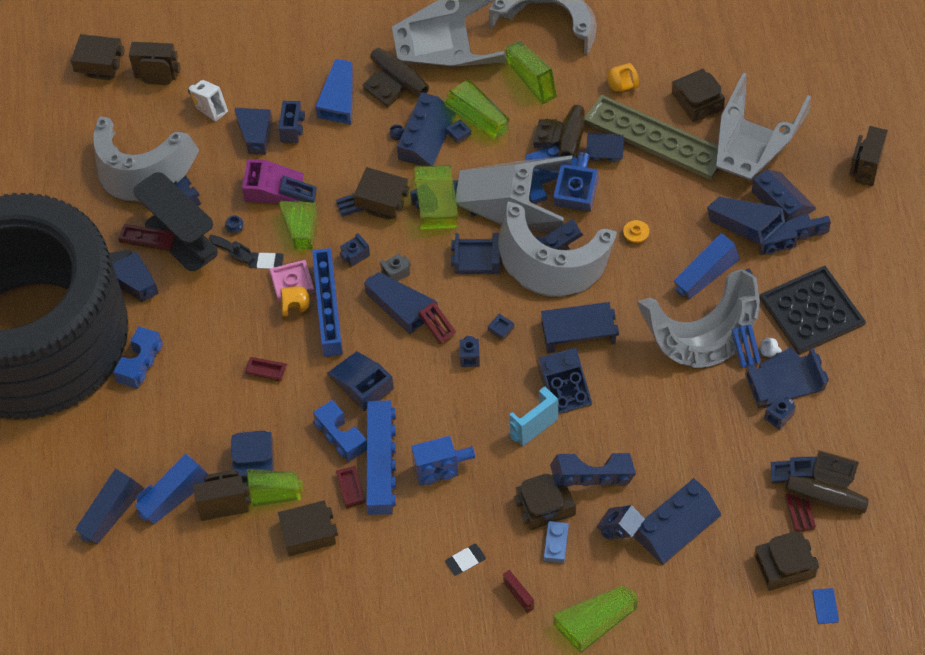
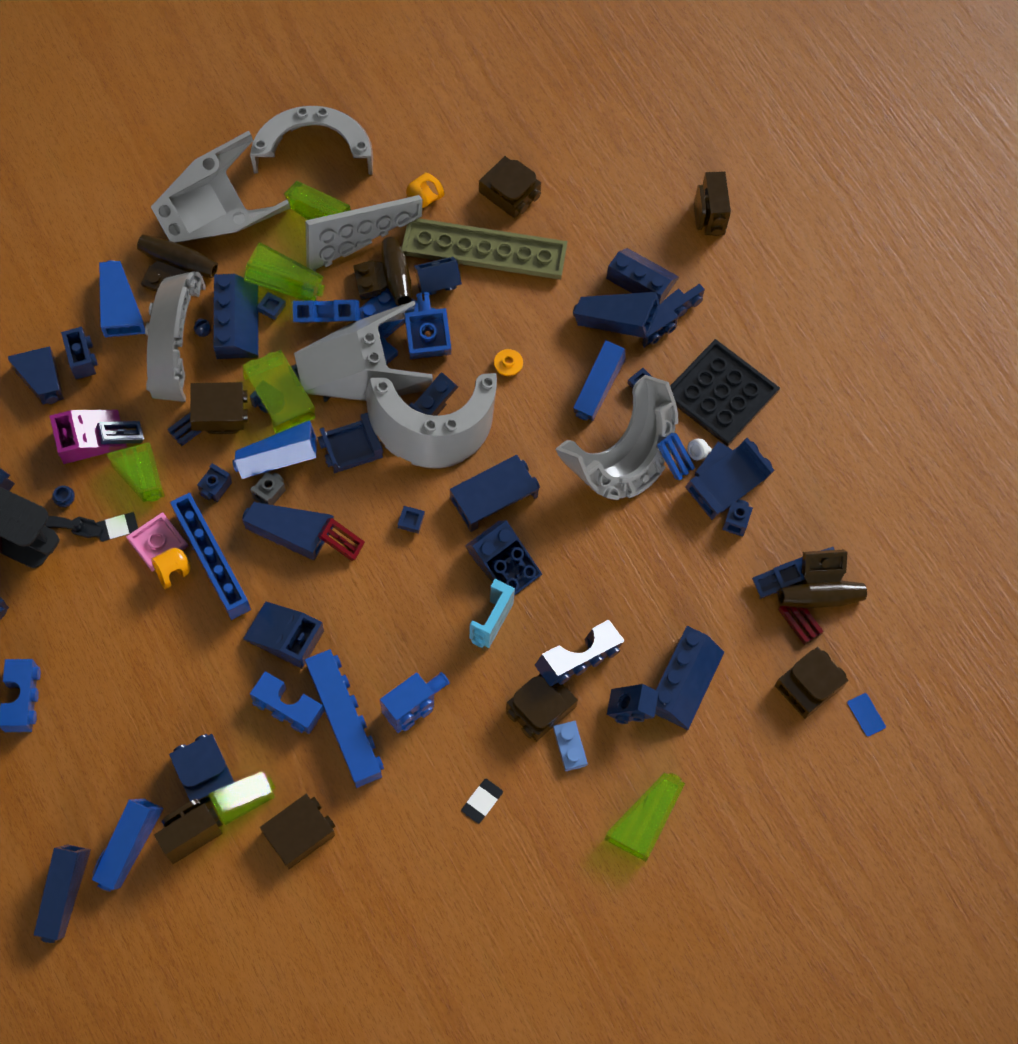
camera: 30 degrees left, 10 degrees up
(265, 368) = (171, 657): dark red tile -> none
(350, 486) = (324, 763): dark red tile -> none
(358, 121) = (165, 335): none -> light grey windscreen
(414, 240) = (277, 451): none -> slope
(469, 352) = (392, 566): dark blue brick -> none
(496, 146) = (326, 311): none -> blue arch
(518, 591) = (556, 818): dark red tile -> none
(545, 90) = (354, 229): none -> light grey wing
(748, 147) = (589, 230): light grey windscreen -> none

